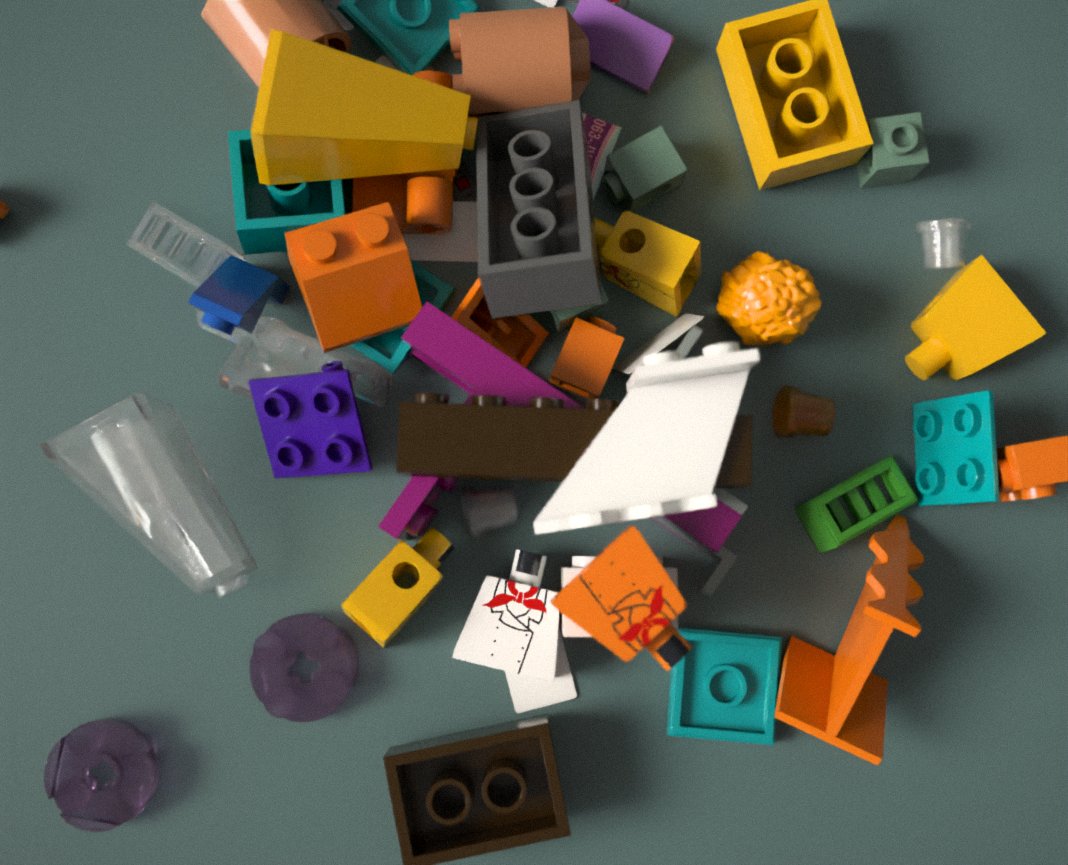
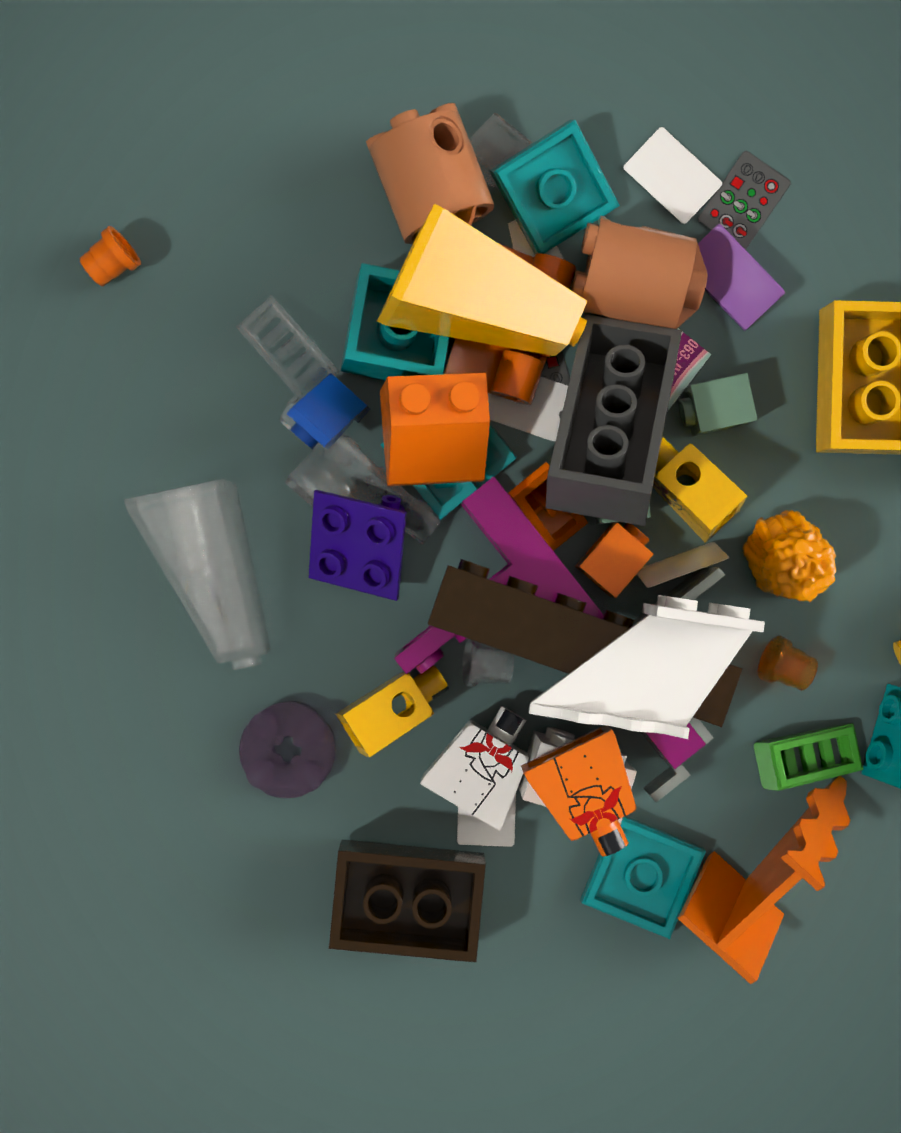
camera: 20 degrees right, 5 degrees up
(77, 792) = (64, 796): clear purple plate -> none

